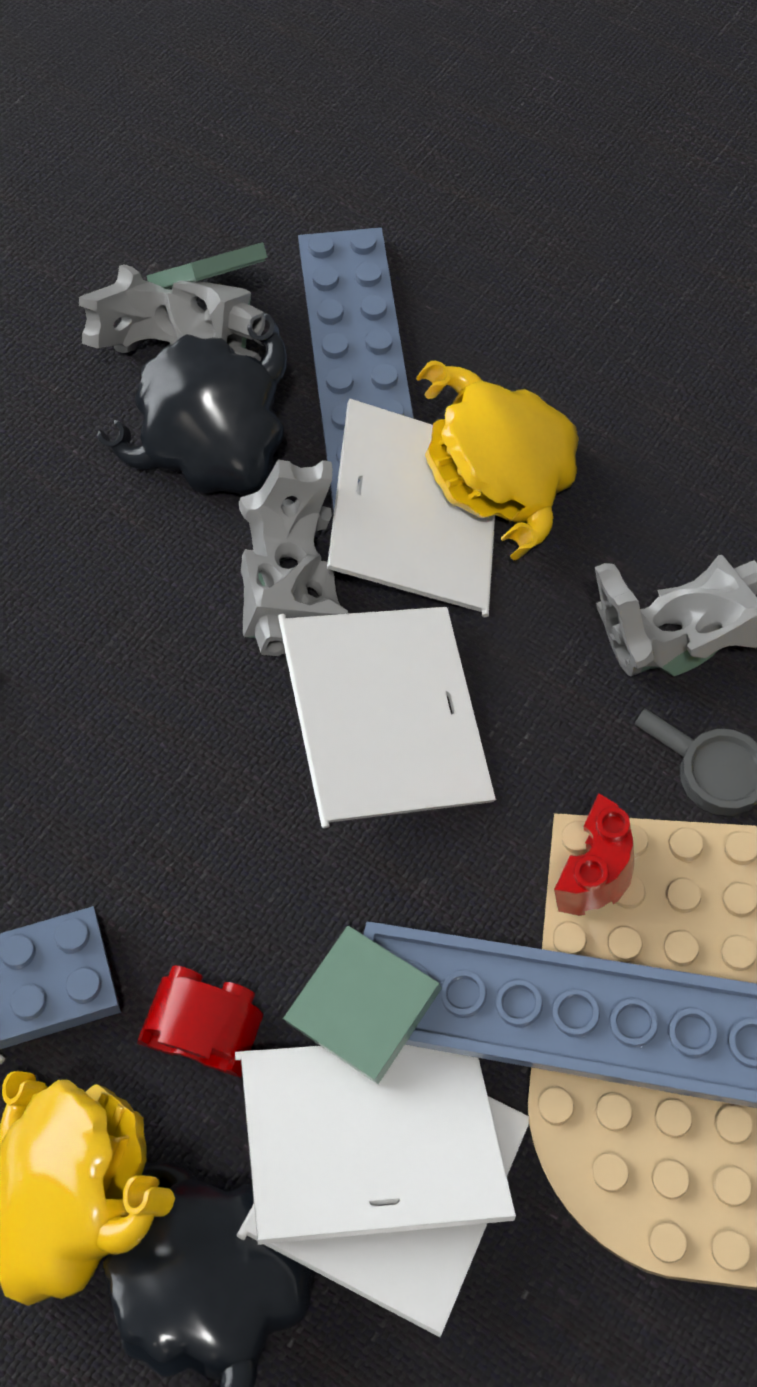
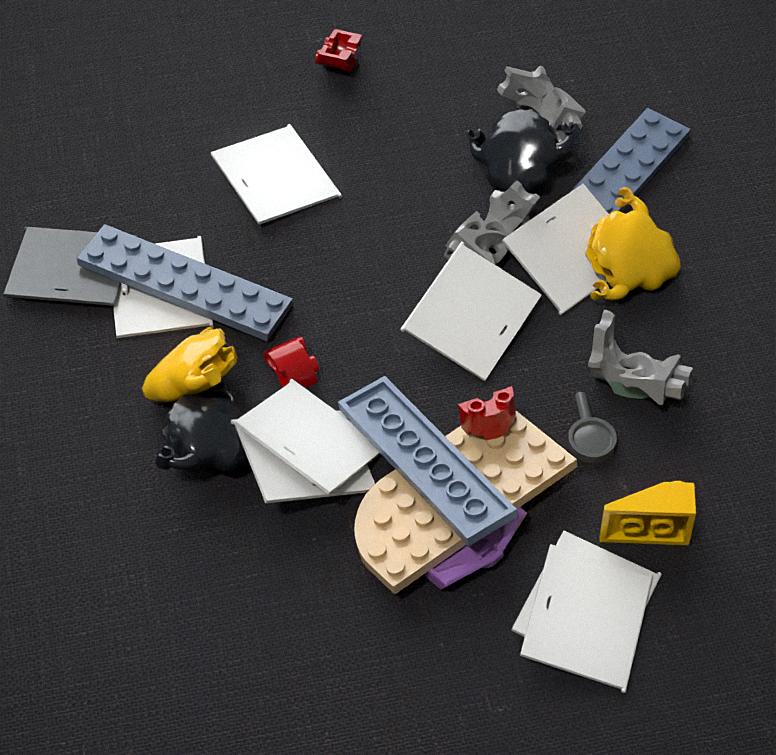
camera: 45 degrees right, 10 degrees down
(210, 266) = (584, 93): sand green tile -> none
(363, 1004) = (352, 396): sand green tile -> none

